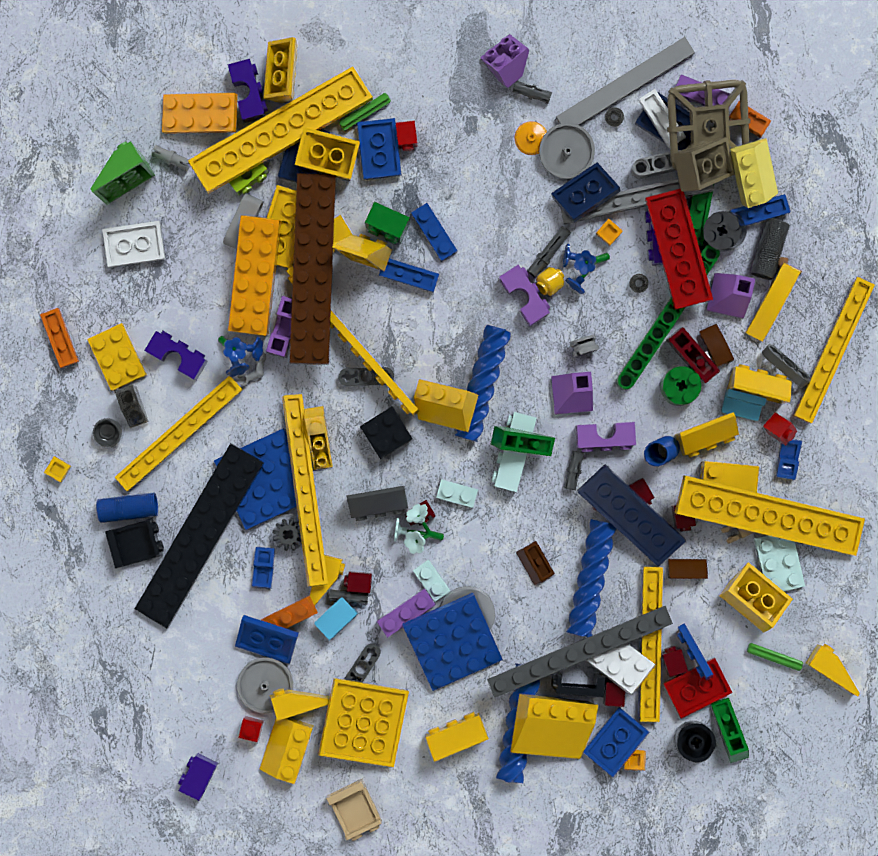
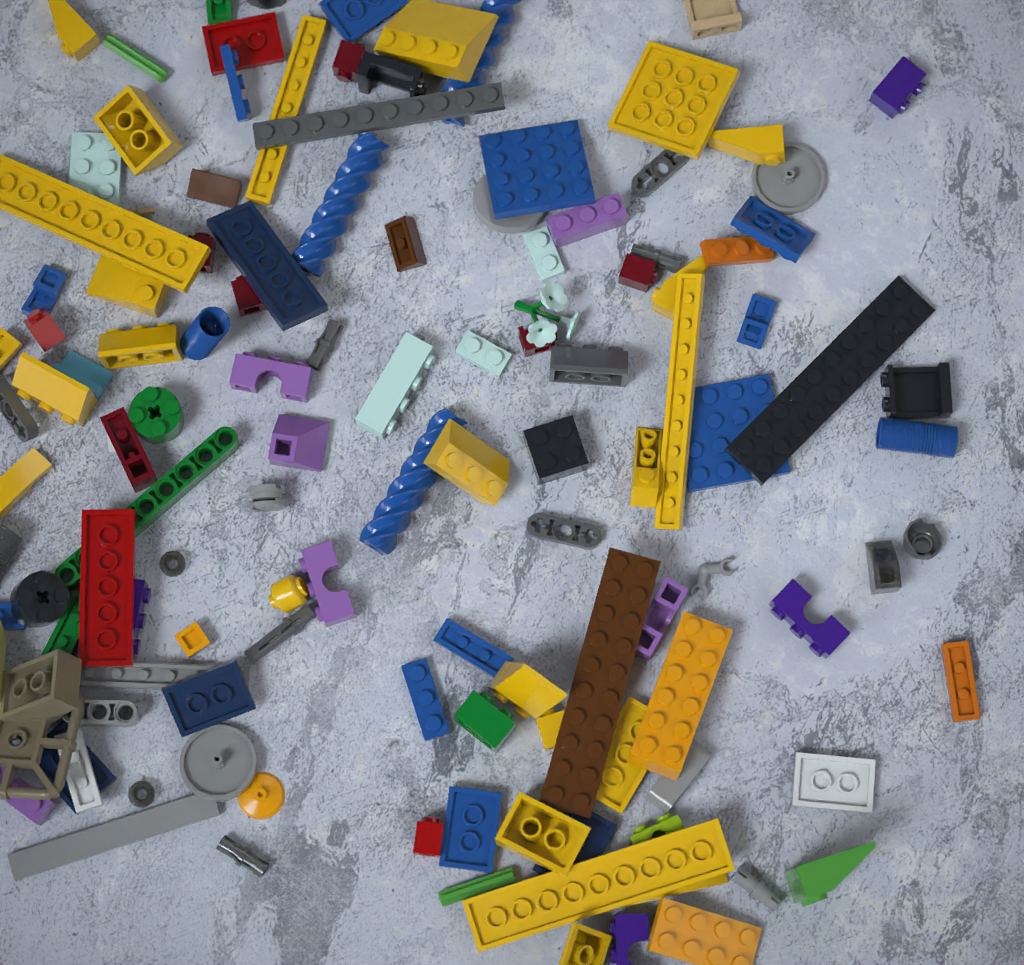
camera: 165 degrees left, 10 degrees down
(57, 469) = (998, 510): yellow plate -> none
(117, 357) = (888, 638): yellow plate -> none
(178, 433) = (828, 517): yellow plate -> none
(236, 350) = (726, 599): blue plant -> none
(251, 729) = (817, 127): red brick -> none
(281, 534) = (712, 362): dark grey gear -> none
(286, 749) = (778, 91): yellow slope -> none
(336, 618) = (677, 233): medium azure panel -> none
(370, 363) = (554, 544): yellow plate -> none
(456, 736) = (561, 54): yellow slope -> none
(507, 60) = (265, 908): medium lavender slope -> none
(522, 441) = (383, 390): green slope -> none
(584, 263) = (236, 602): blue plant -> none
(623, 667) = (327, 85): white plate -> none
(674, 661) = (263, 81): dark red brick -> none
(716, 345) = (94, 457): reddish brown slope -> none
(731, 294) = (55, 517): medium lavender slope -> none

